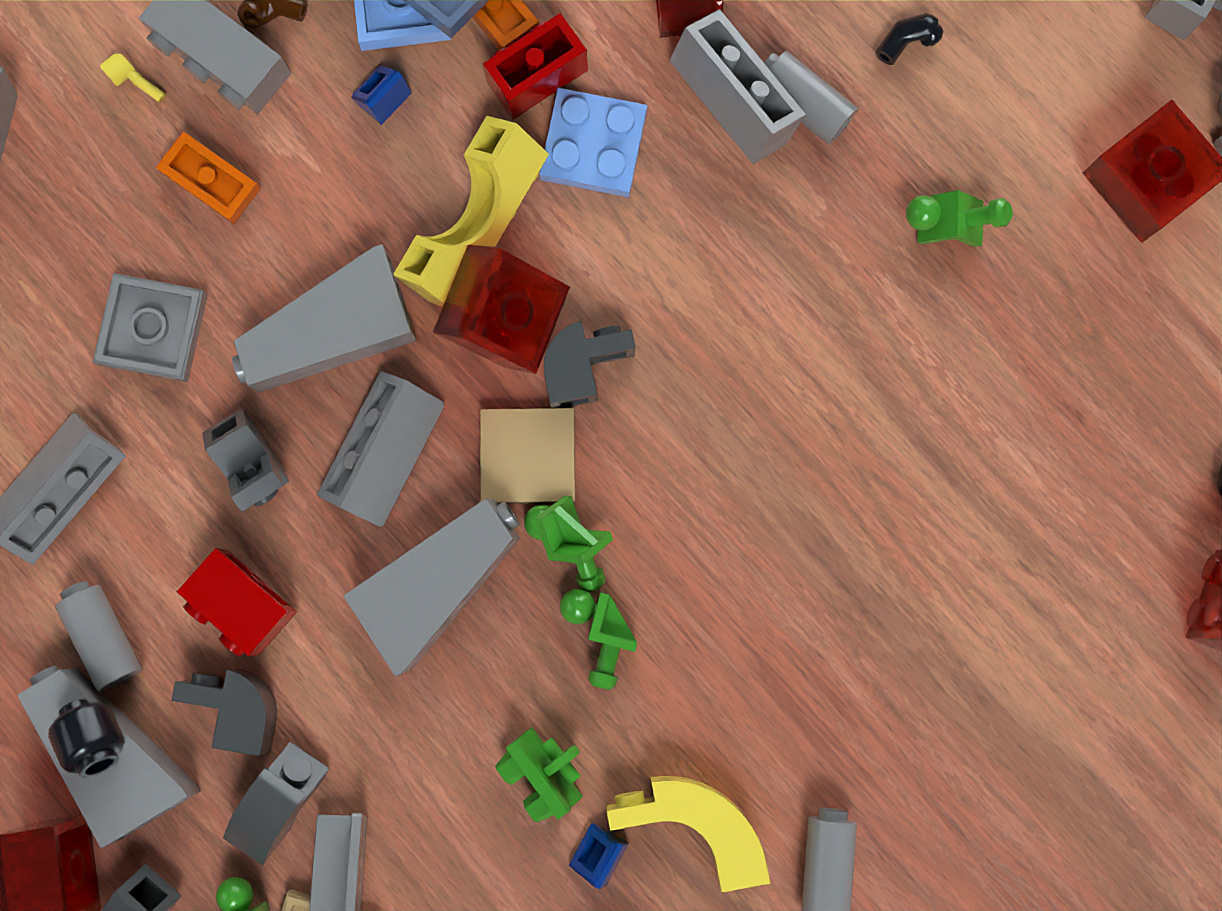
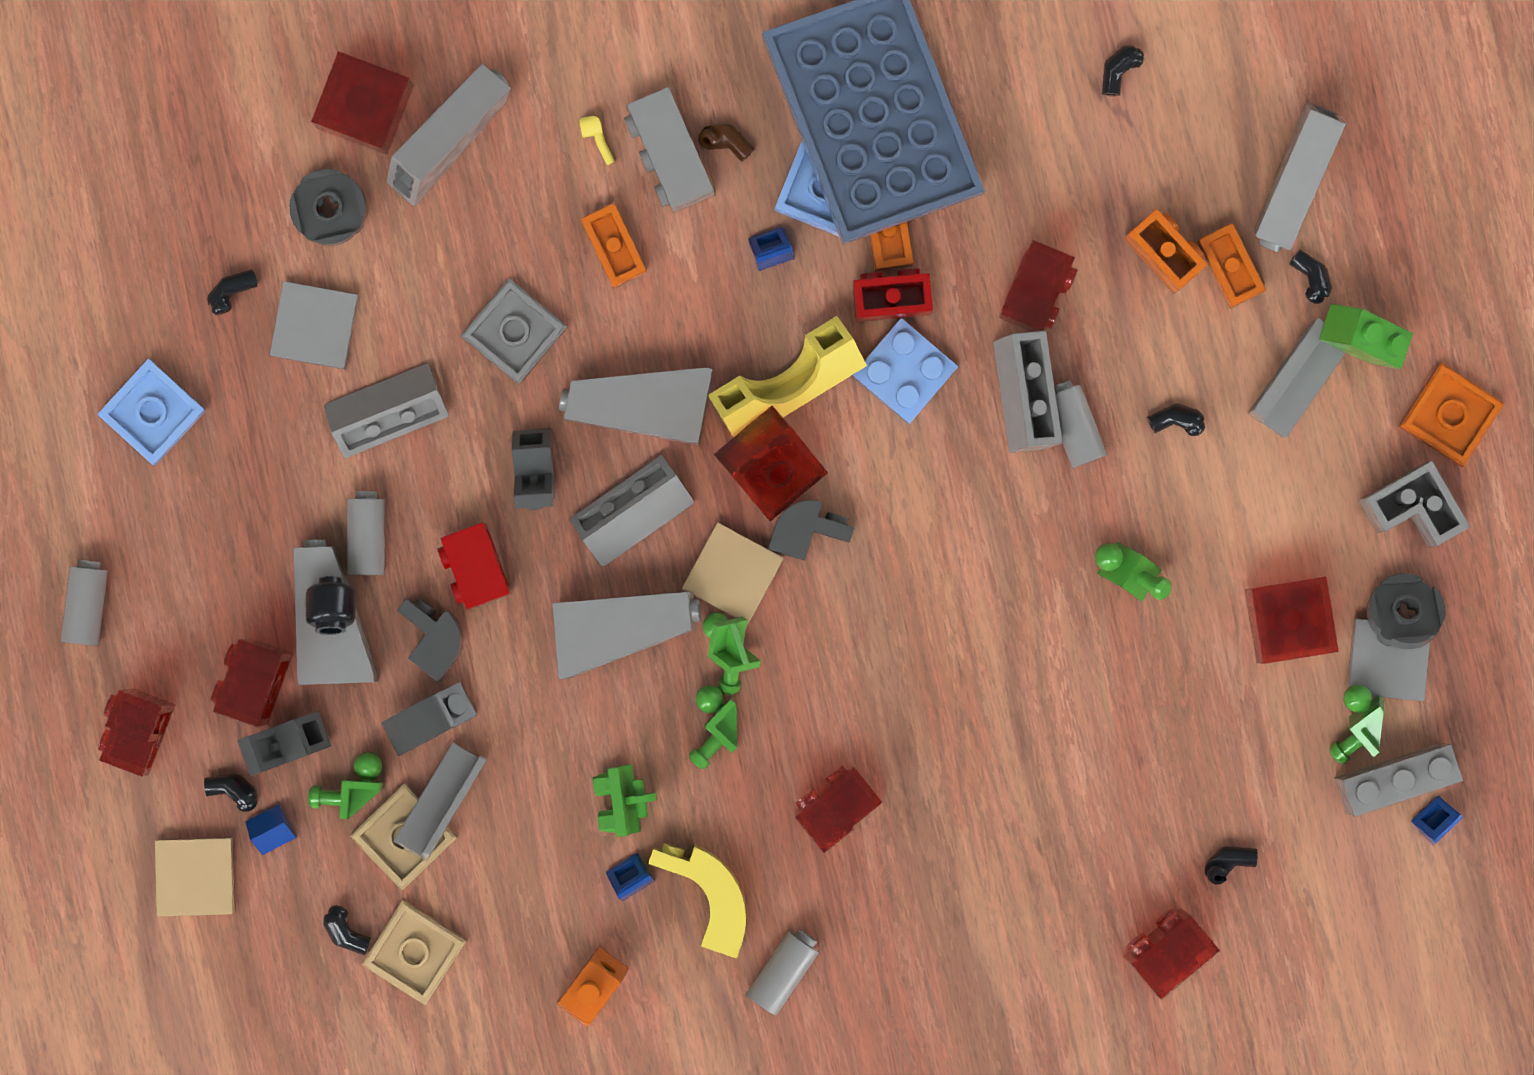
camera: 25 degrees right, 5 degrees up
(785, 648) = (837, 807): none -> clear red brick

